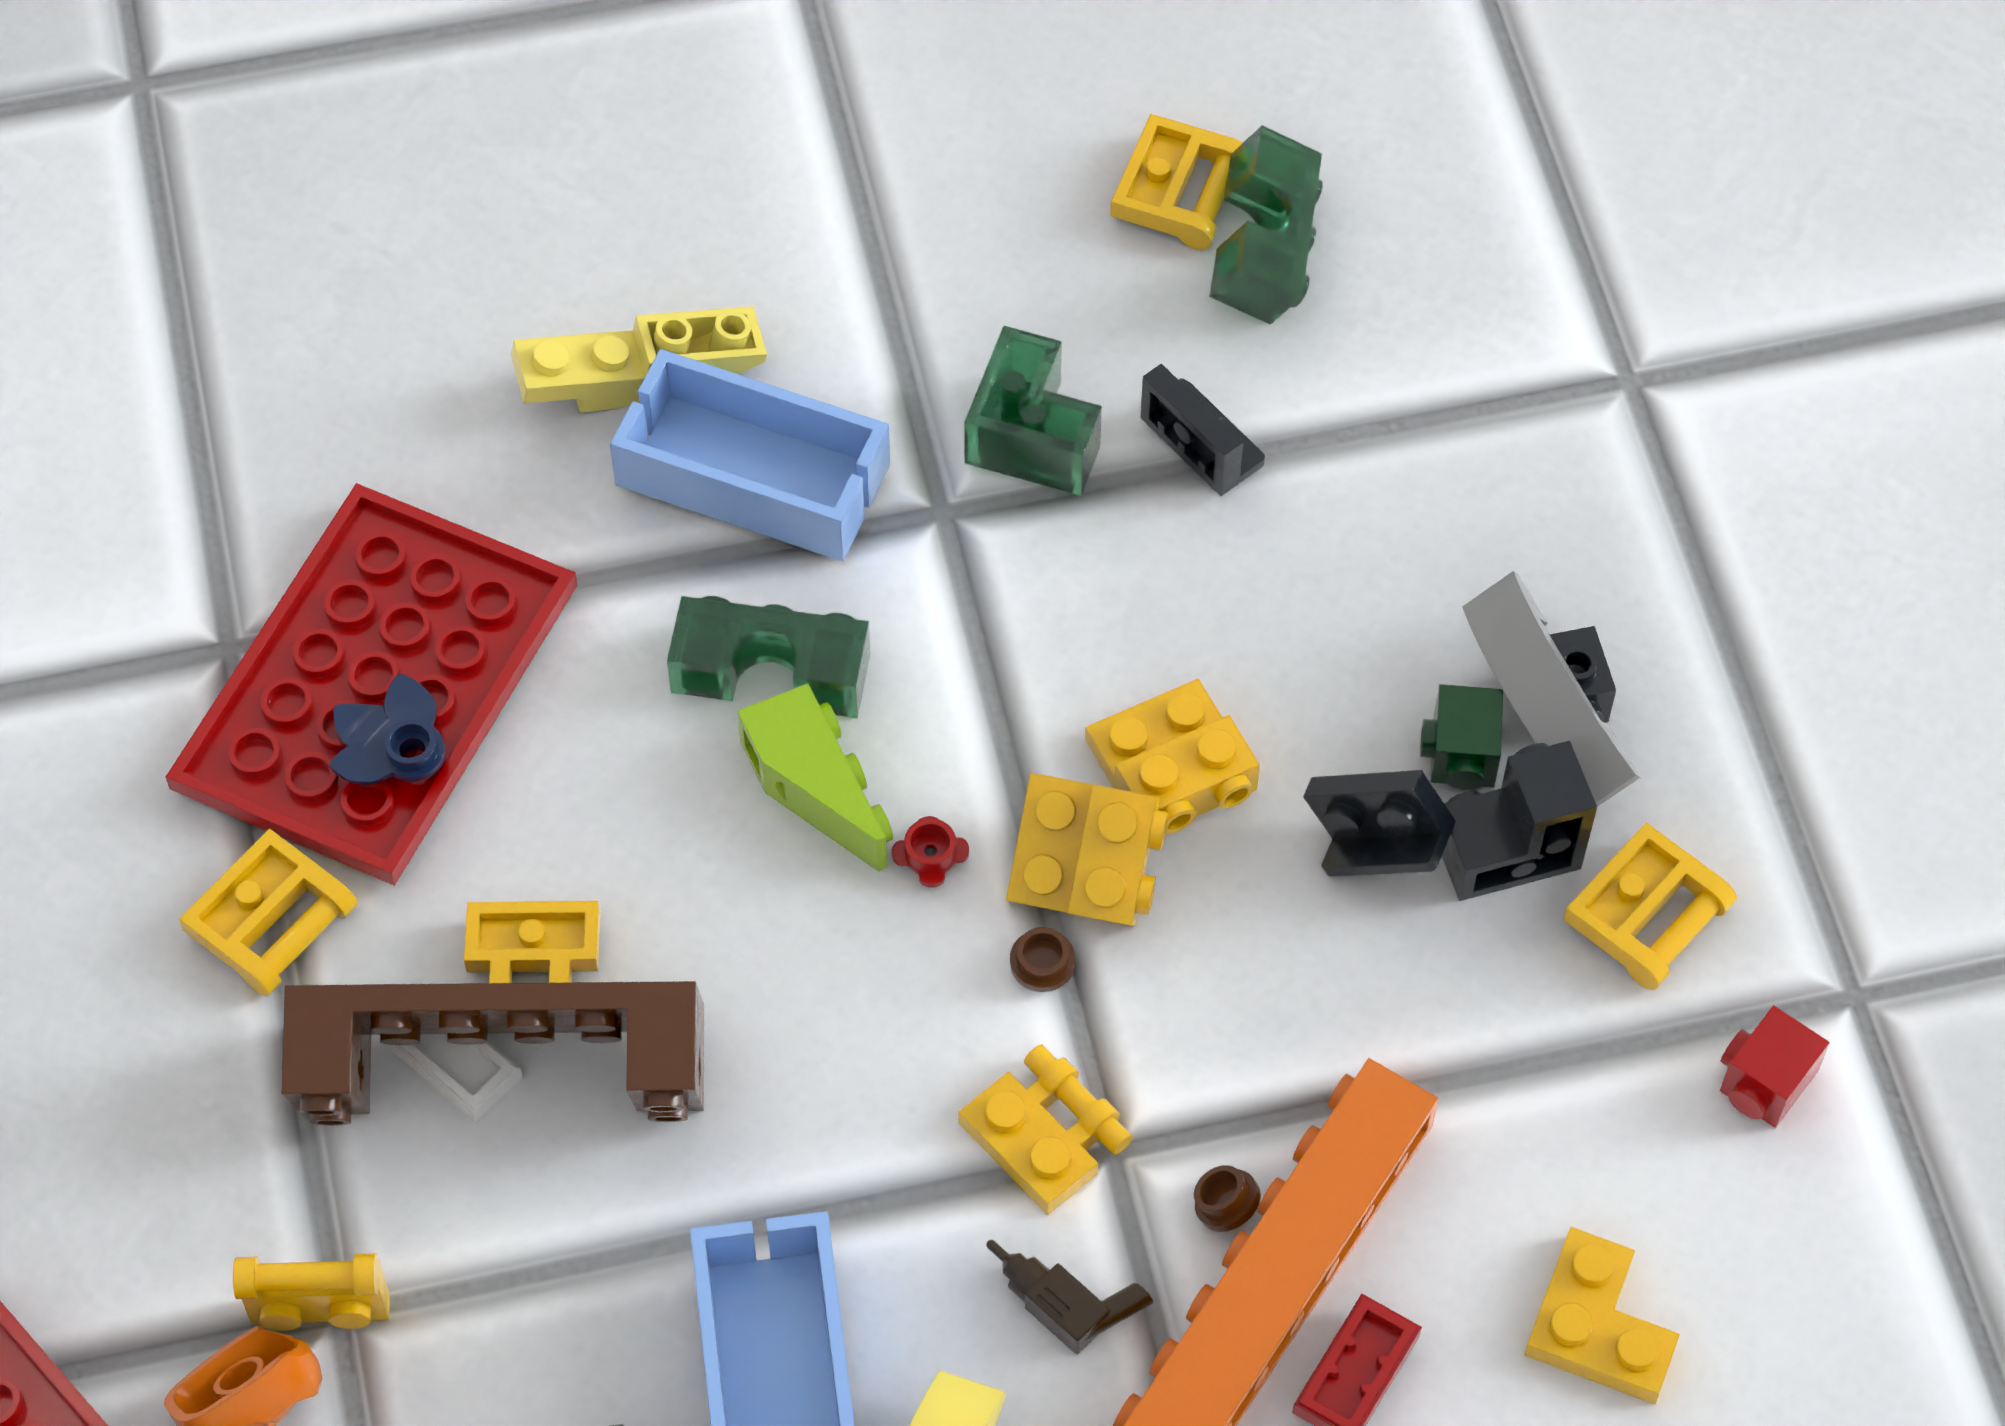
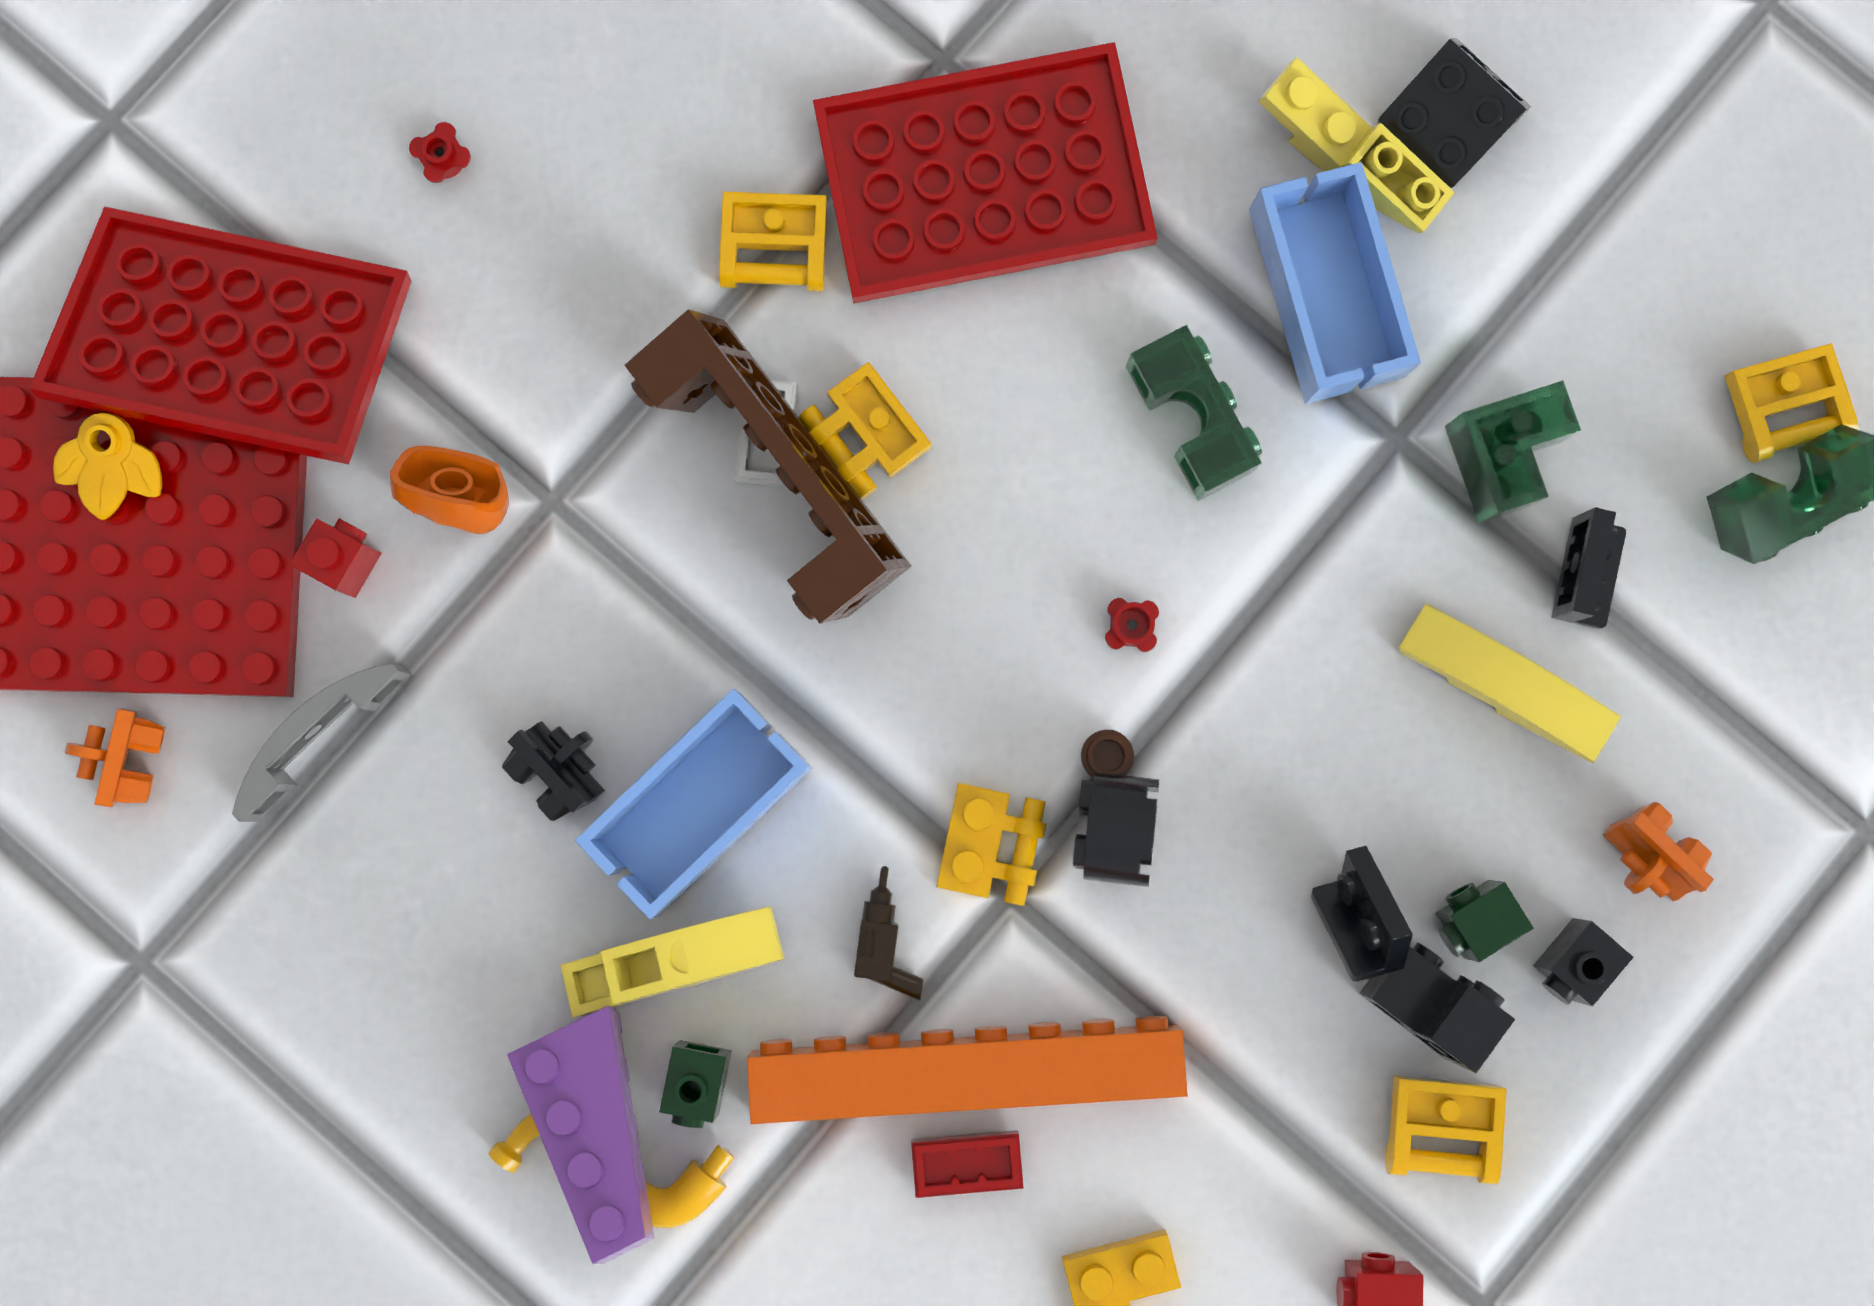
camera: 50 degrees right, 25 degrees up
(308, 1292) = (528, 472): yellow plate -> none
(381, 735) = (942, 213): dark blue plate -> none
(677, 257) = (1453, 112): none -> black bracket
(805, 770) = (1128, 496): lime slope -> none
(1086, 849) = (1202, 732): yellow plate -> none
(1122, 983) = (1117, 828): none -> black brick
(1178, 752) = (1320, 734): yellow plate -> none
(1226, 1198) = (1023, 999): reddish brown plate -> none
(1251, 563) = (1510, 683): none -> light yellow slope
(1534, 548) = (1655, 858): none -> orange hips
(1542, 685) = (1558, 951): light grey slope -> none

